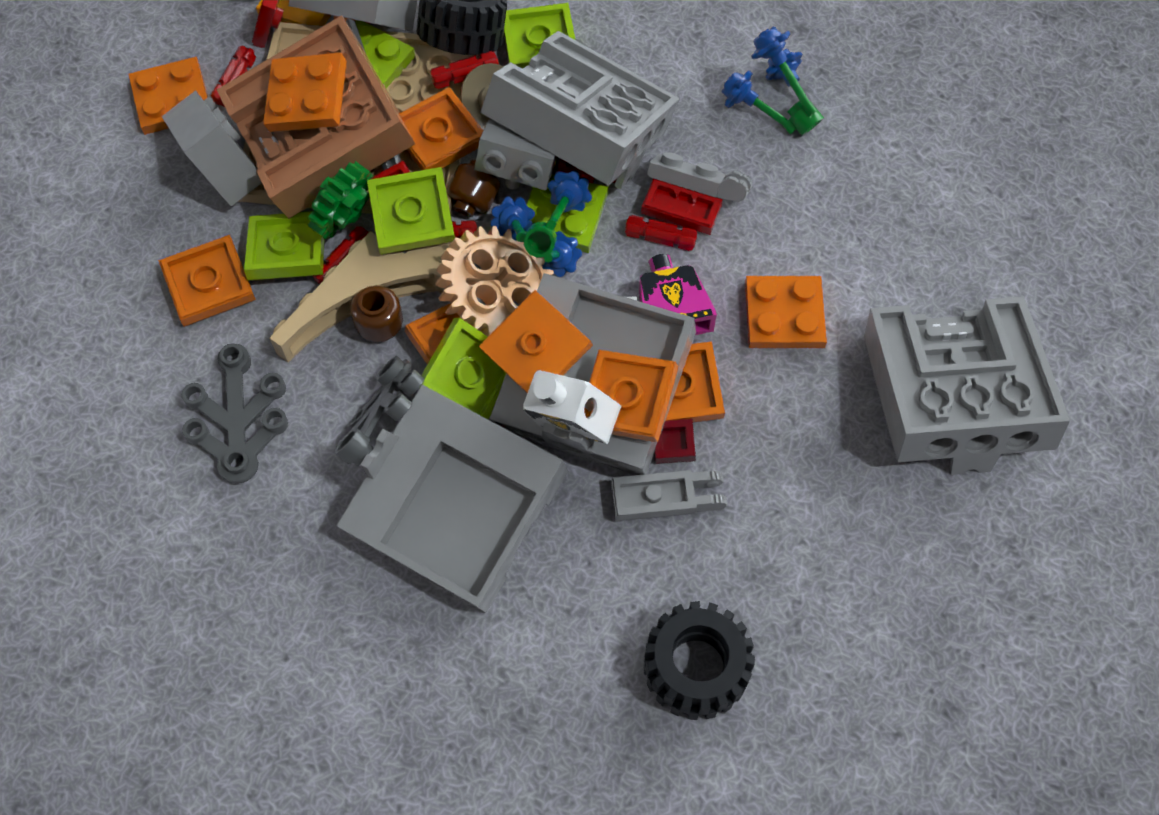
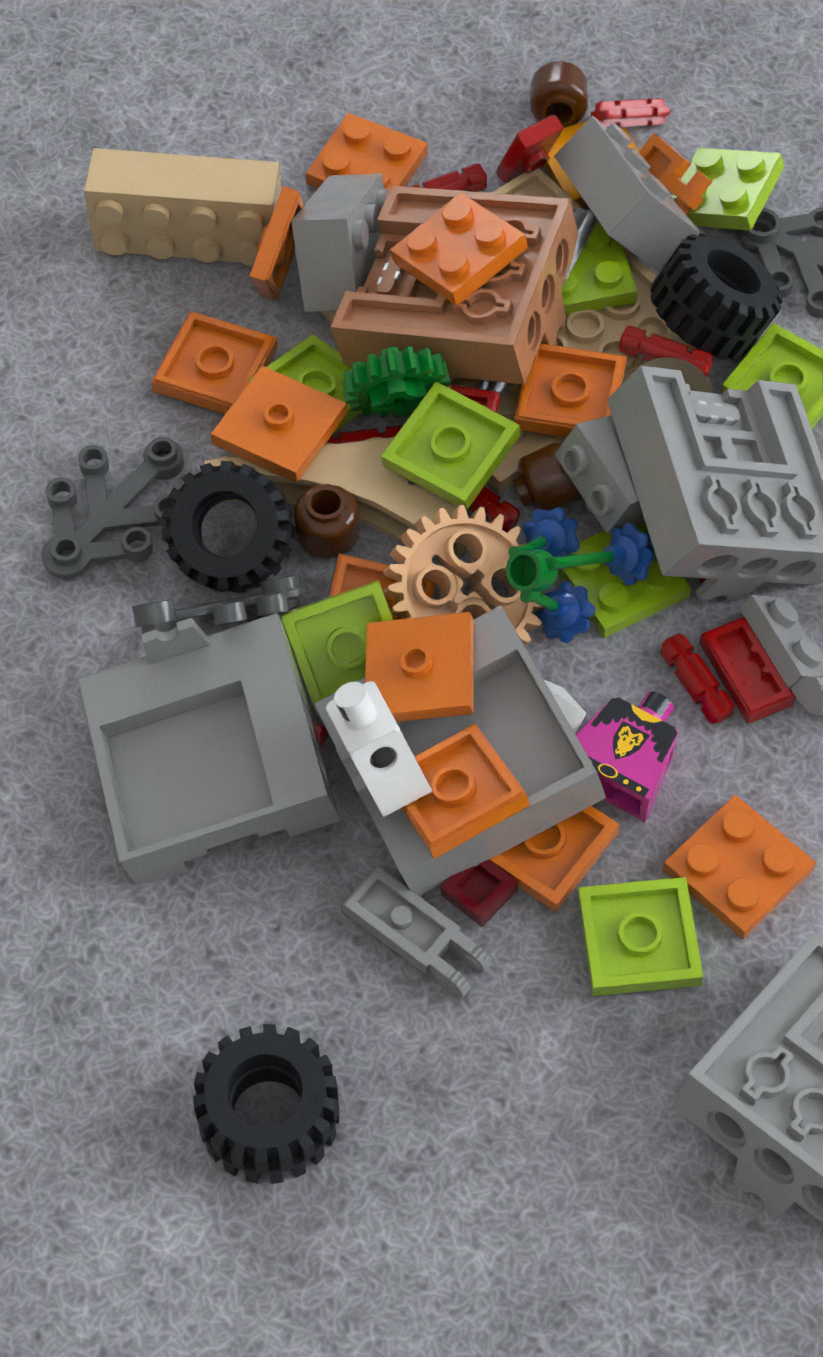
camera: 45 degrees right, 5 degrees down
(92, 199) = (179, 204): none -> tan brick
(179, 175) = (276, 246): none -> orange plate
(293, 280) = (279, 424): none -> orange plate
(343, 332) = (194, 501): none -> black tyre
(780, 391) = (639, 936): none -> lime plate

